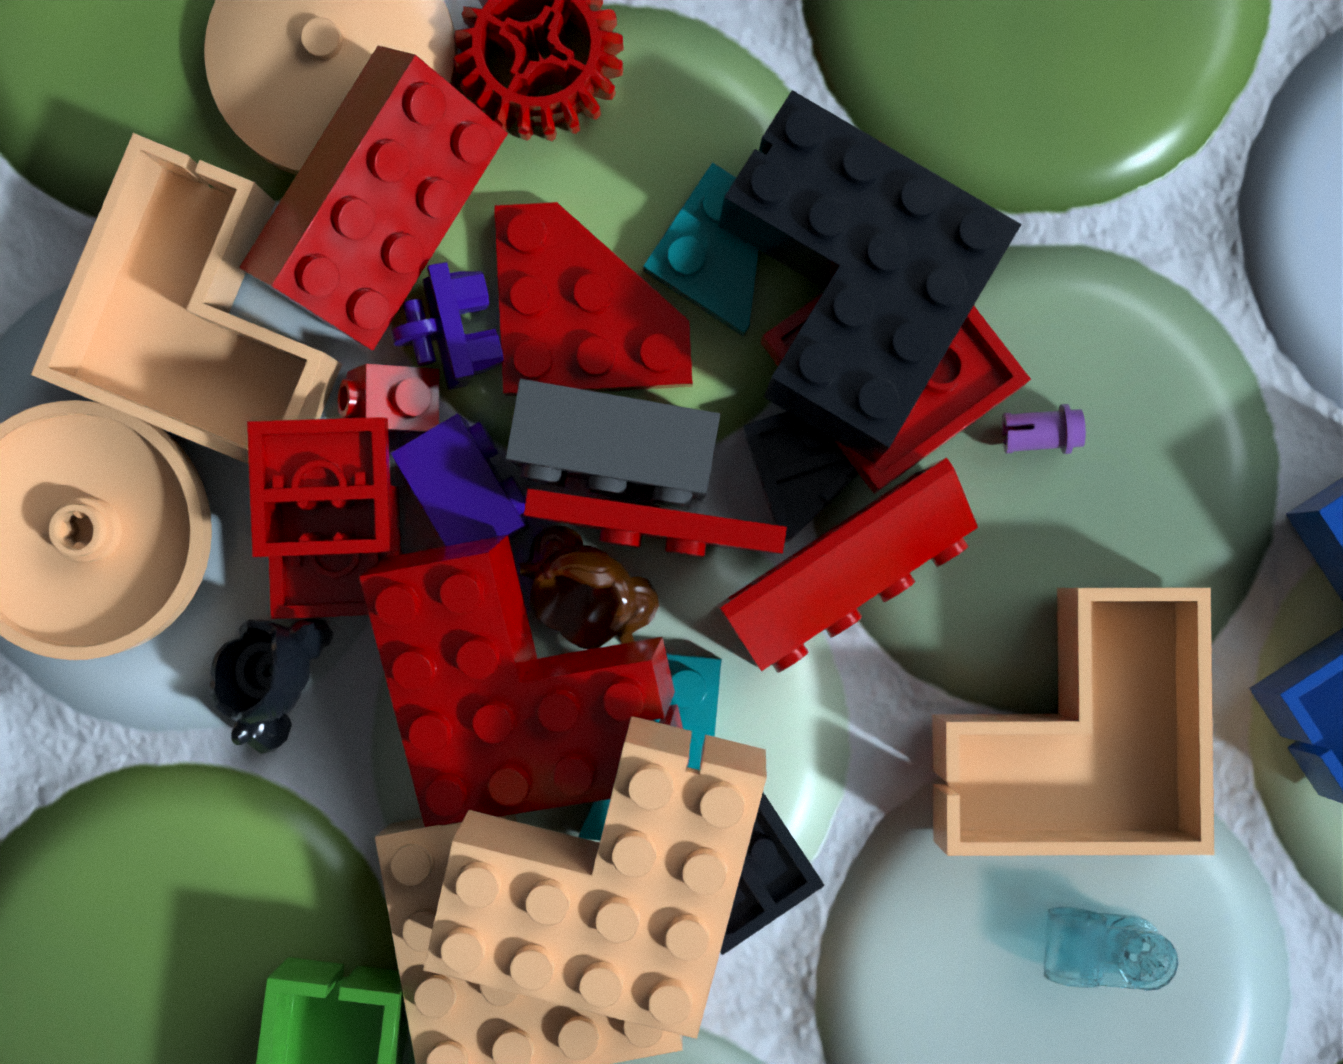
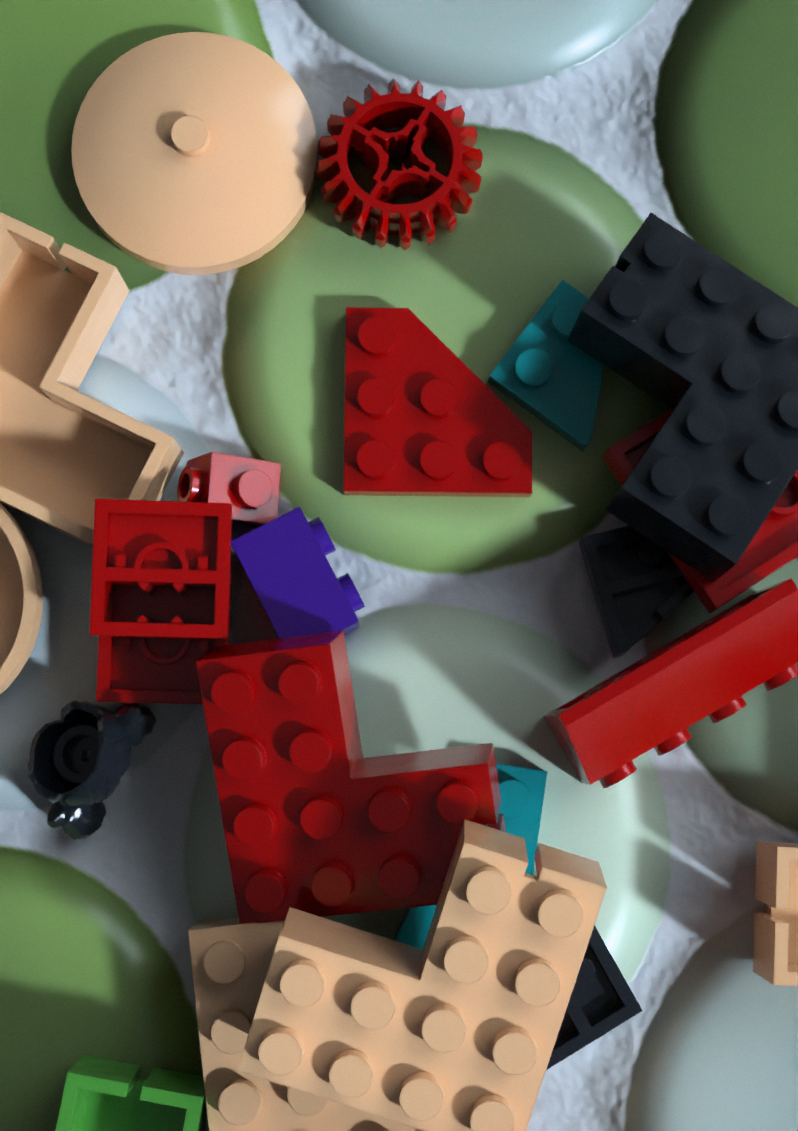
camera: 10 degrees left, 5 degrees down
(375, 196) = (233, 290): red brick -> none
(447, 298) = (293, 396): dark purple hips -> none
(585, 590) = (414, 693): reddish brown hair -> none
(612, 443) = (457, 546): dark grey brick -> none
(627, 523) = (518, 637): red wing -> none

